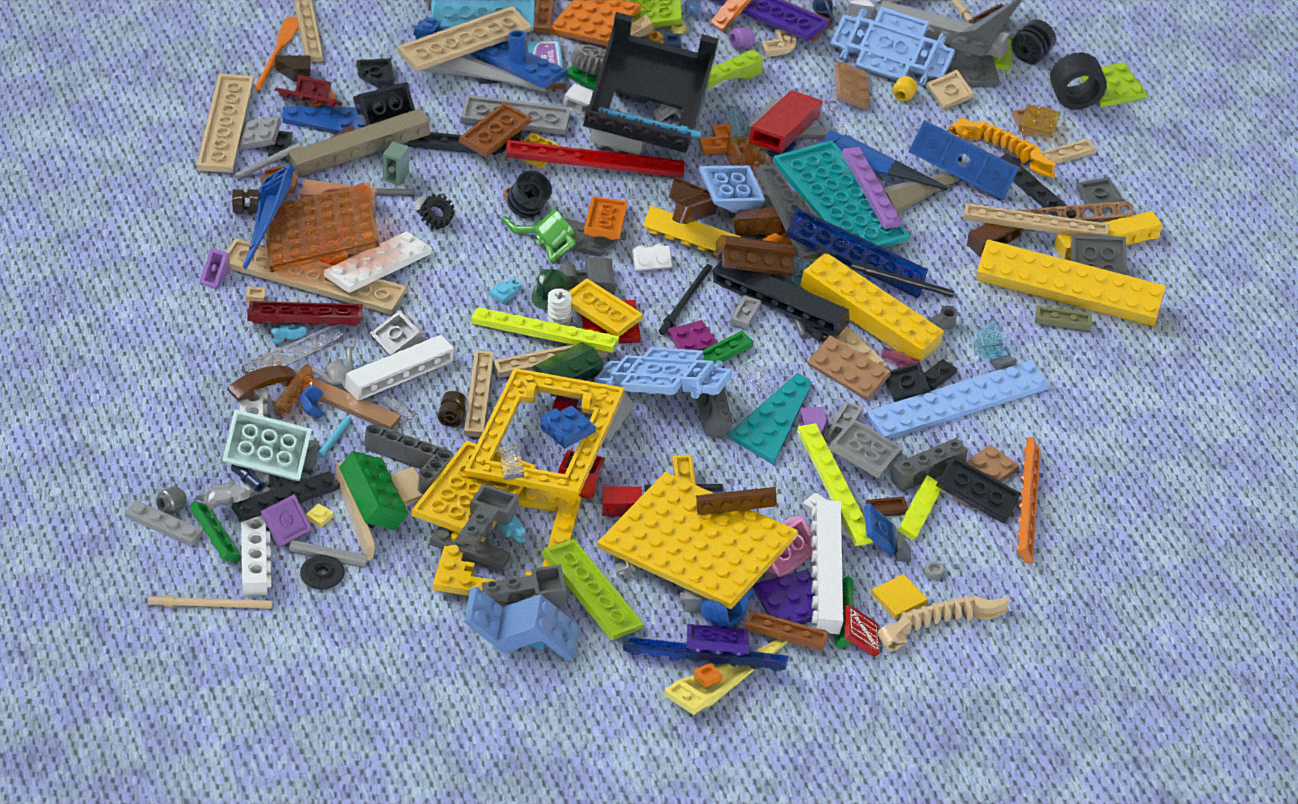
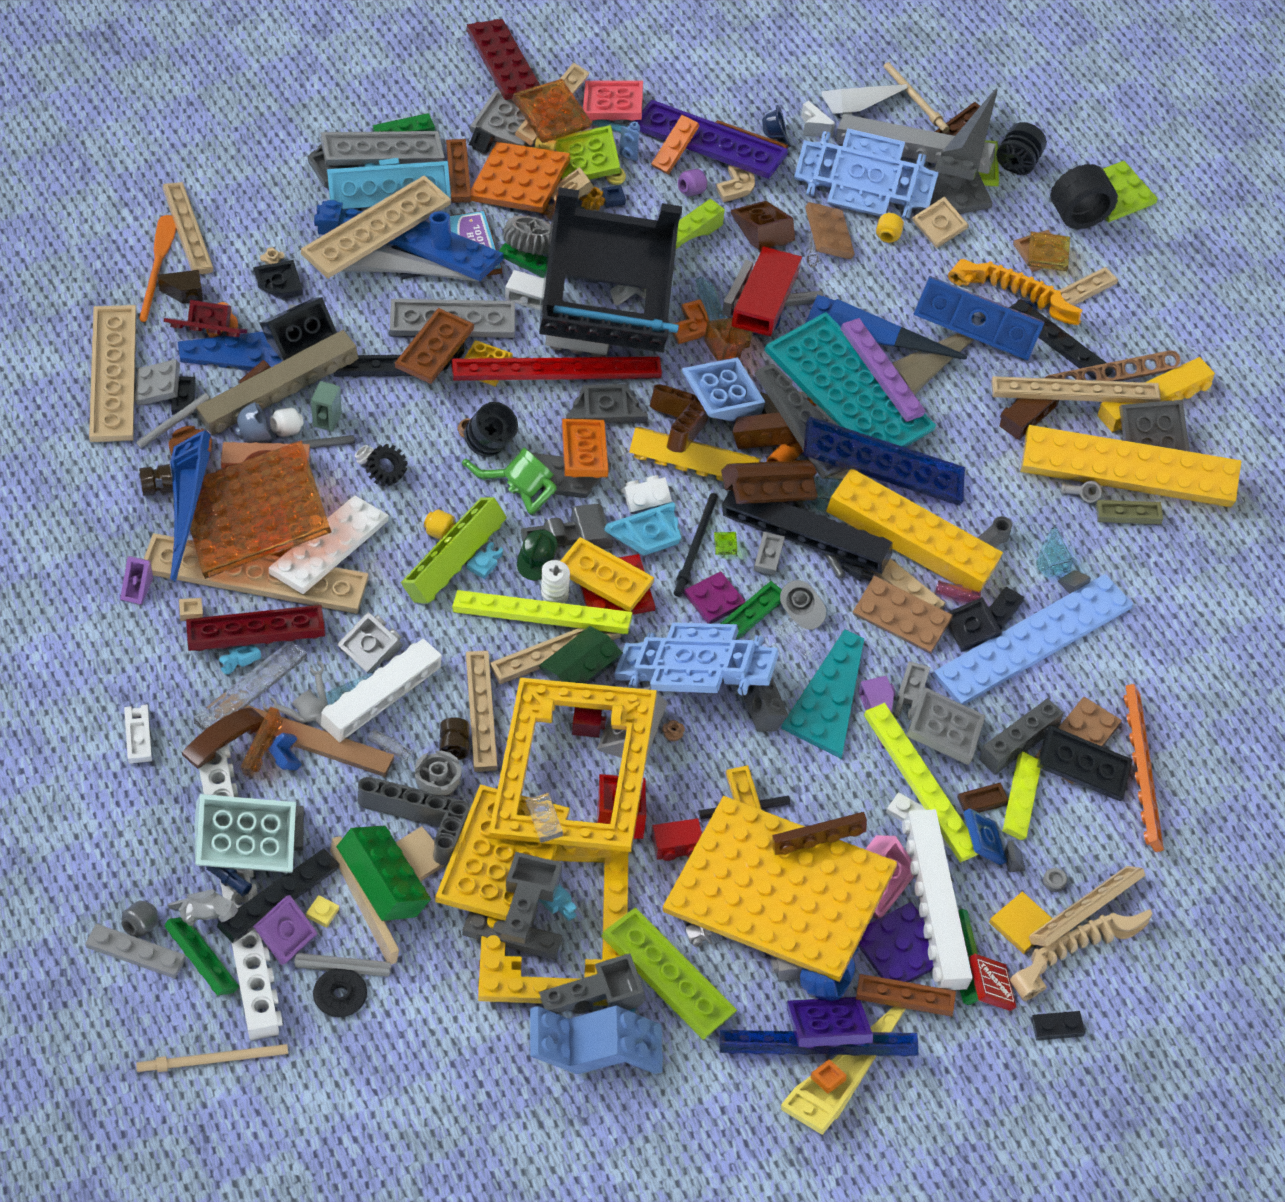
camera: 10 degrees left, 10 degrees up
(195, 376) = (138, 734): none -> white plate
(333, 169) = (253, 425): none -> sand blue cylinder
(334, 437) = (320, 795): medium azure bar -> none
(360, 172) = (286, 422): none -> white head
(374, 53) = (272, 256): none -> tan plate
(433, 429) = (438, 773): none -> light grey cylinder
(473, 259) = (439, 523): none -> yellow head
(480, 277) = (454, 550): none -> lime brick
(566, 426) = (600, 756): blue plate -> none
(634, 189) = (607, 403): none -> dark grey wing
(636, 427) = (673, 735): none -> medium nougat plate
(646, 283) = (648, 530): none -> medium azure wing
(710, 300) = (725, 543): none -> clear neon green plate
(765, 349) = (803, 604): none -> light grey piece
(797, 76) = (764, 225): none -> reddish brown slope
(869, 269) = (904, 483): black bar -> none
(911, 671) = (1058, 1025): none -> black plate
(955, 588) = (1086, 906): none -> tan tile
(1028, 298) = (1084, 491): none -> light grey bar
(1098, 191) = (1134, 338): dark grey plate -> none

